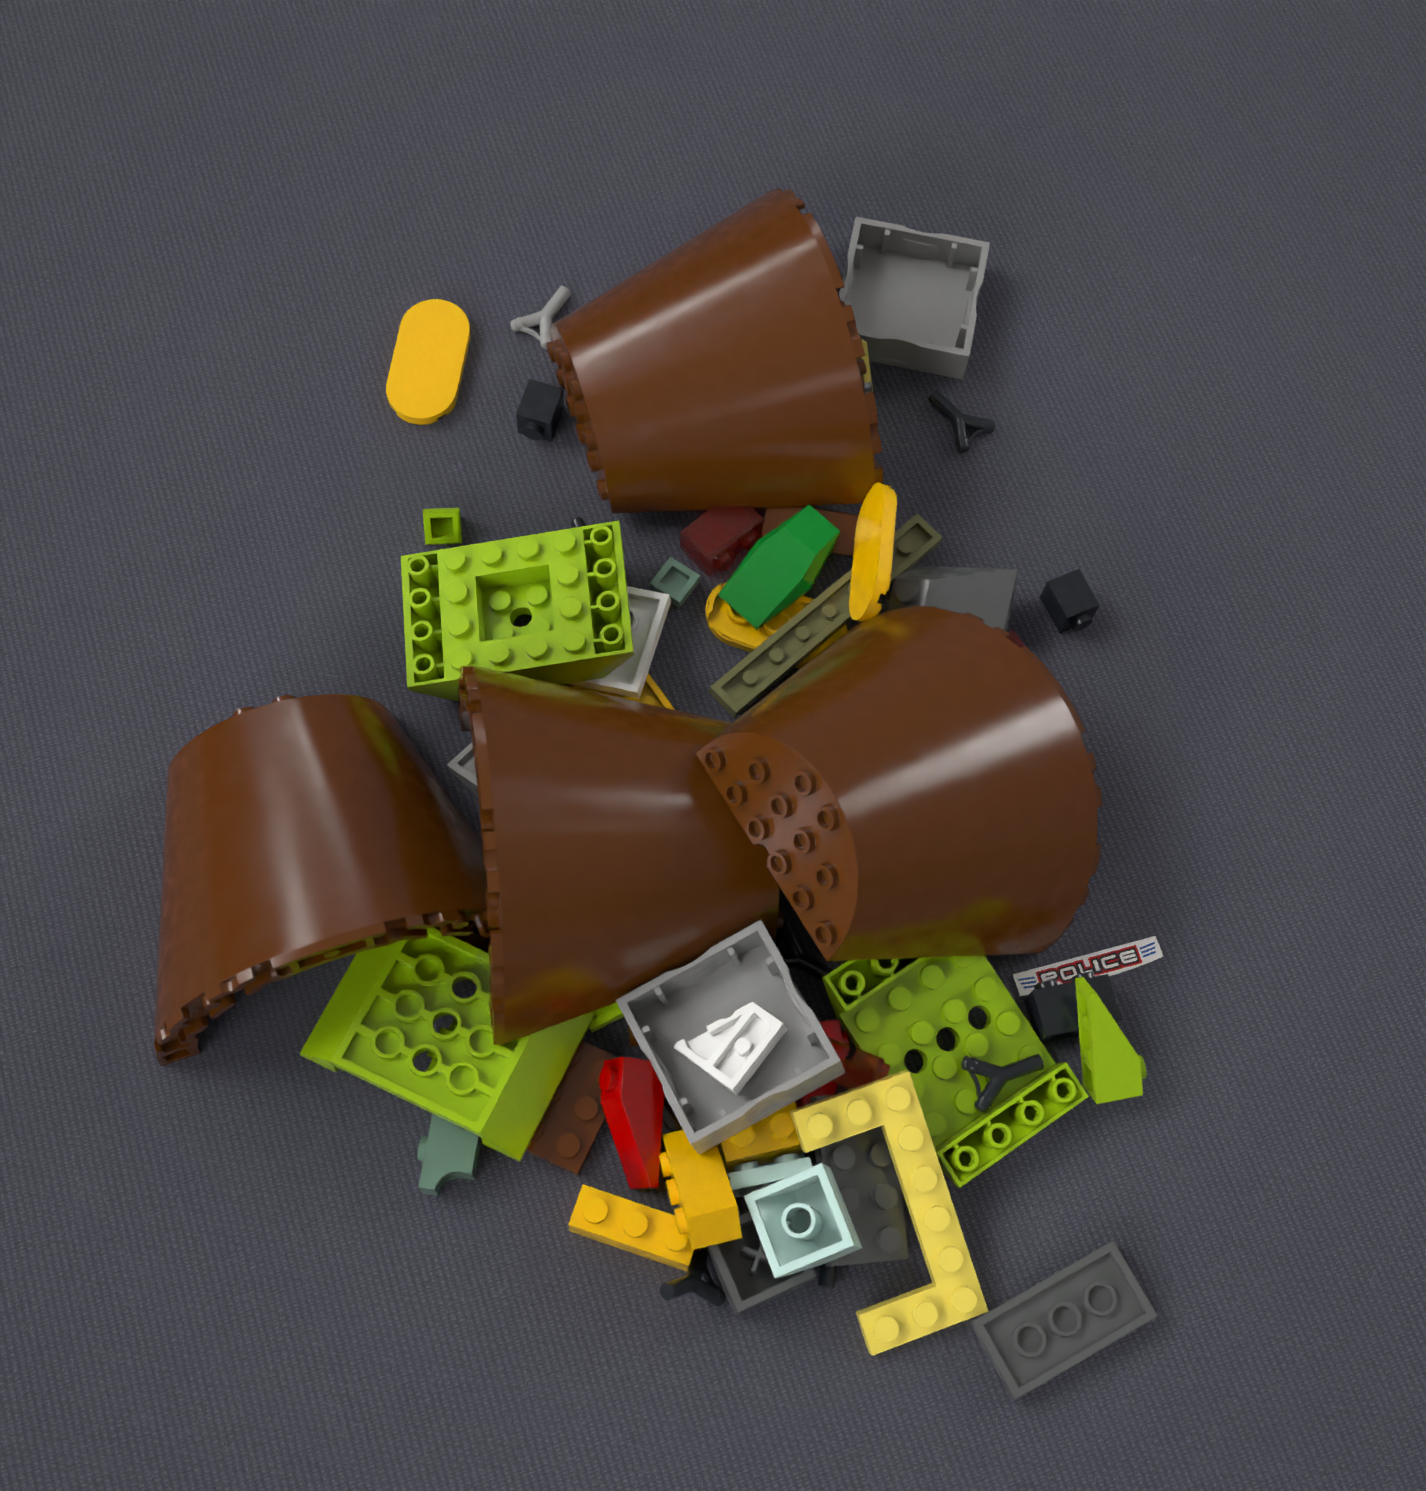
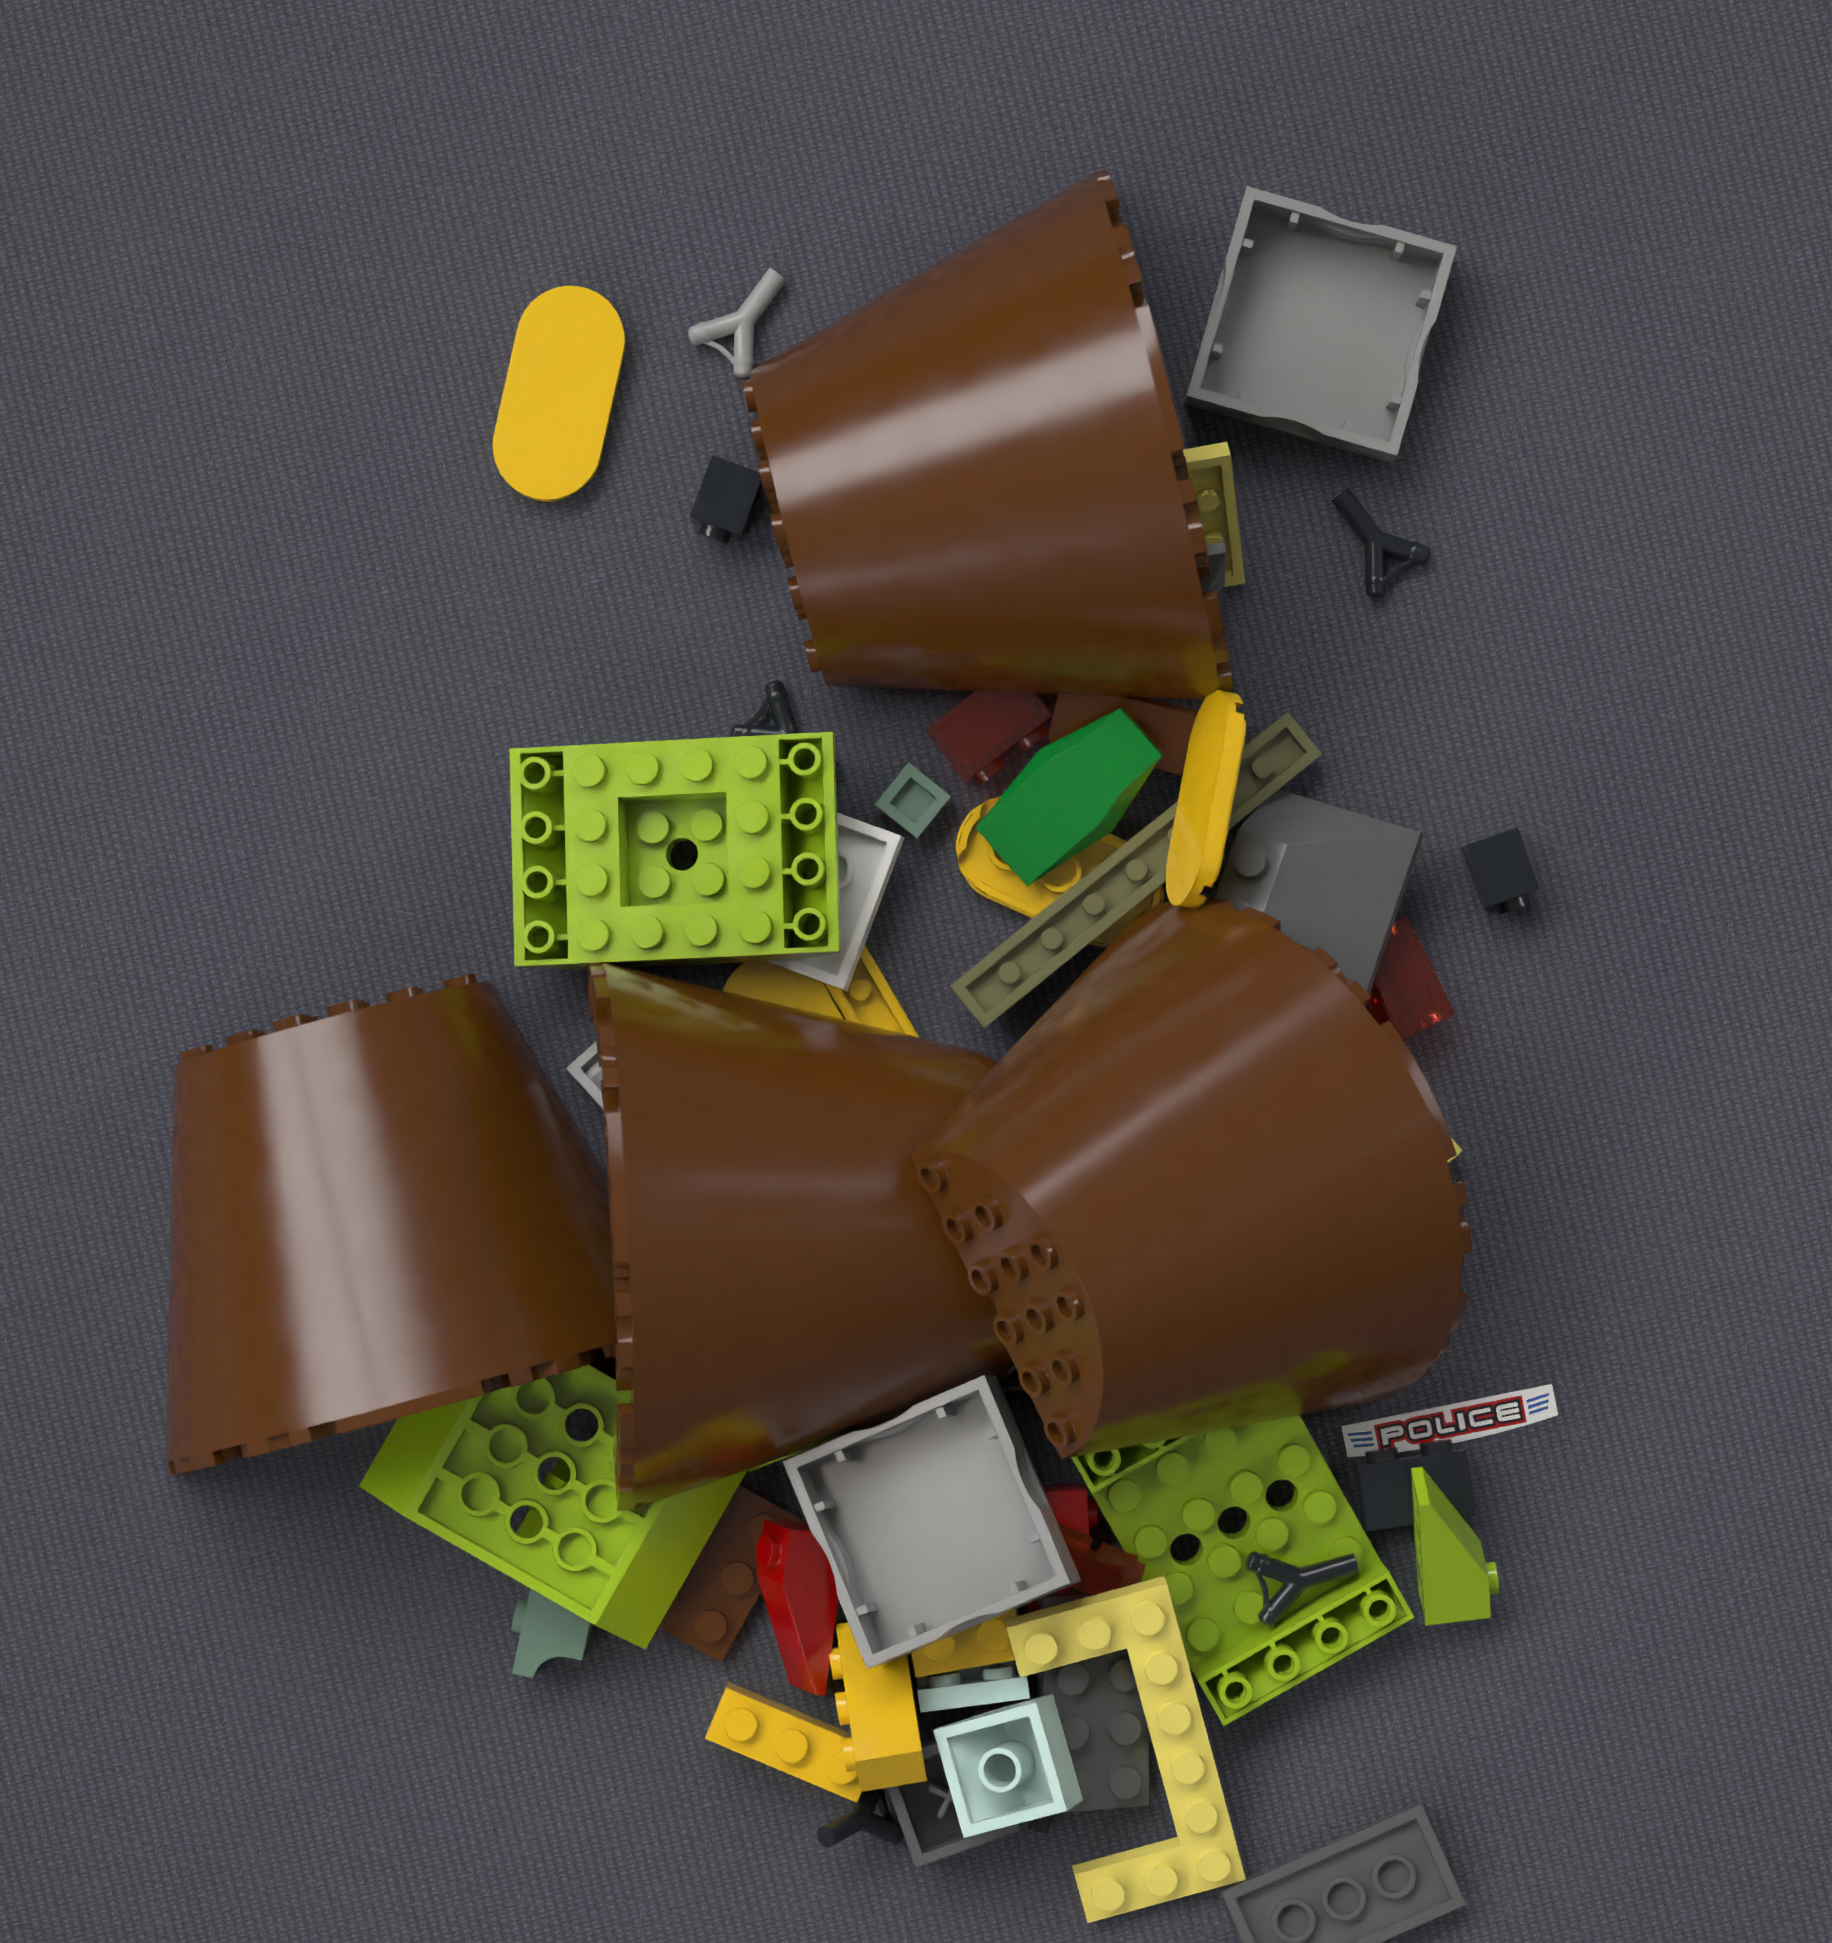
camera: 10 degrees right, 20 degrees up
(442, 526) = (572, 685): lime slope -> none
(734, 1046) = (935, 1535): white wing -> none

